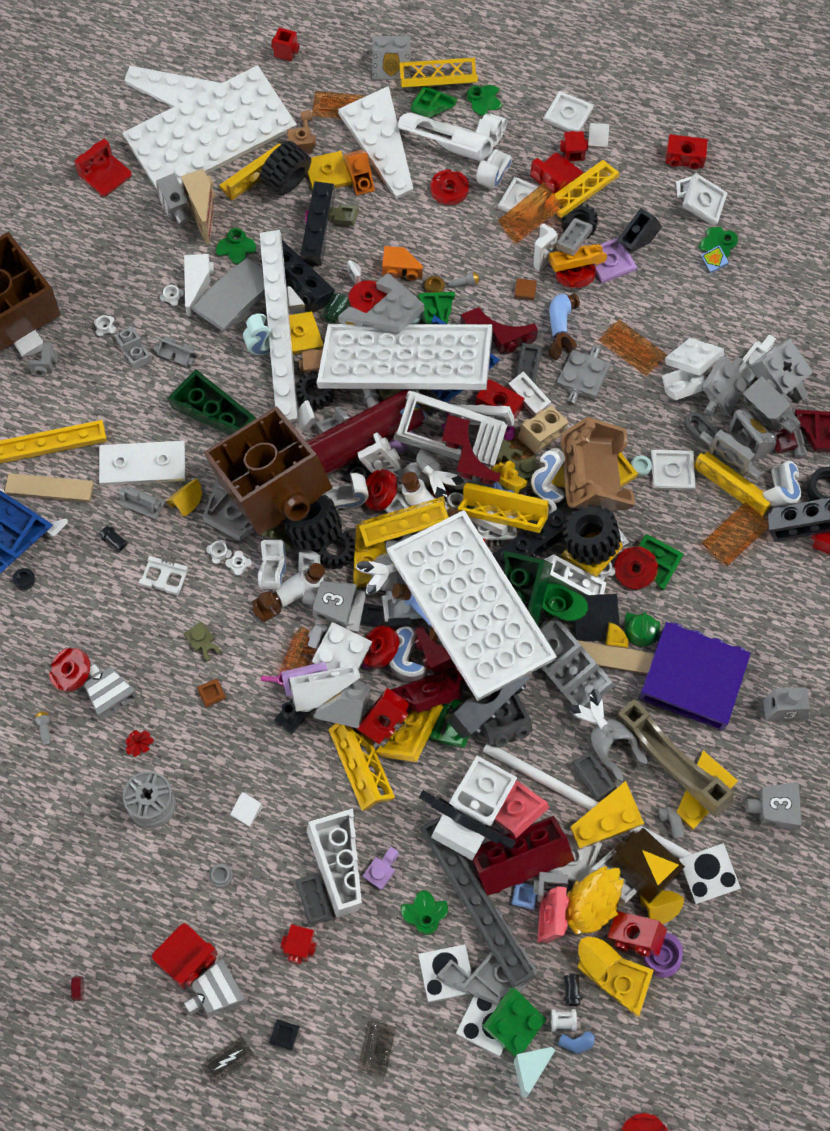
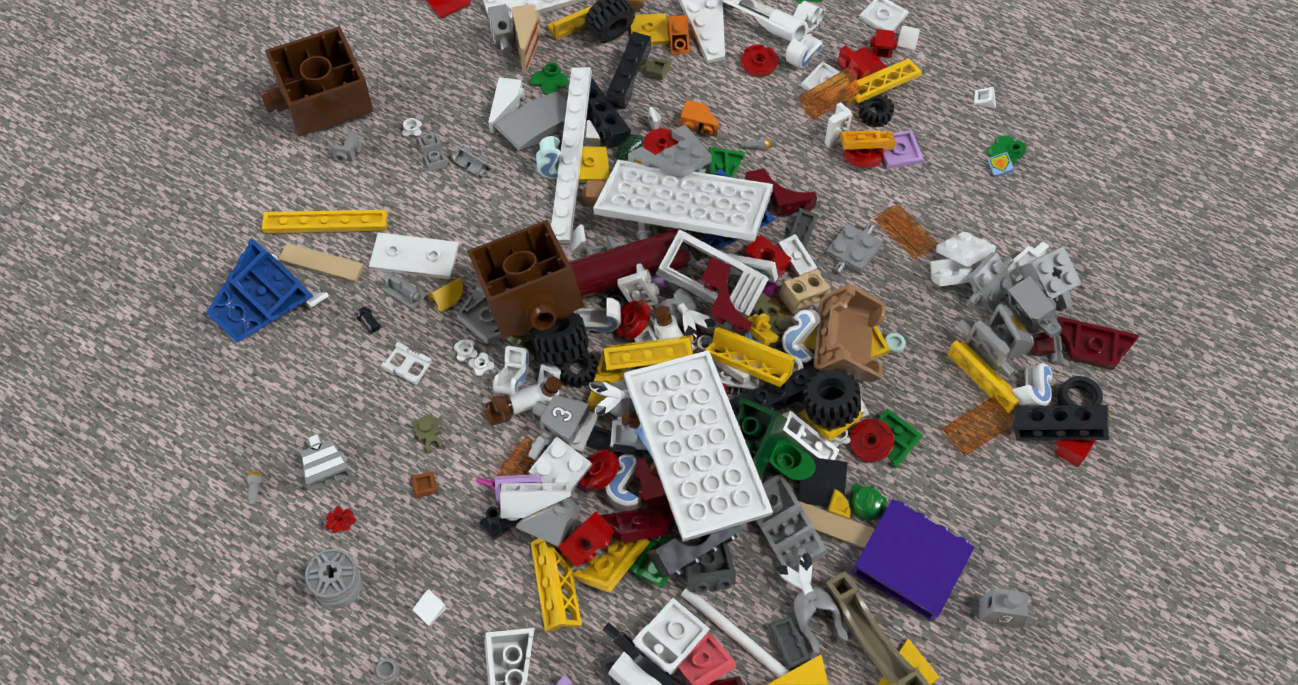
camera: 10 degrees right, 5 degrees down
(24, 579) = (274, 342): black tile -> none
(29, 344) = (337, 132): white slope -> none
(69, 669) = (292, 435): red plate -> none
(171, 289) = (479, 106): white plate -> none
(209, 404) = (486, 210): dark green wedge -> none
(315, 401) = (591, 228): black tyre -> none
(434, 284) = (727, 142): pearl gold tile -> none
(525, 289) = (812, 161): dark orange tile -> none
(558, 311) = (841, 184): piece -> none
(574, 236) = (868, 120): light grey tile -> none
(640, 230) = (932, 126): black slope -> none
(673, 470) = (925, 353): white tile -> none
(686, 151) = (989, 64): red brick -> none
(703, 425) = (963, 314): dark grey plate -> none
(704, 199) = (999, 109): white tile -> none

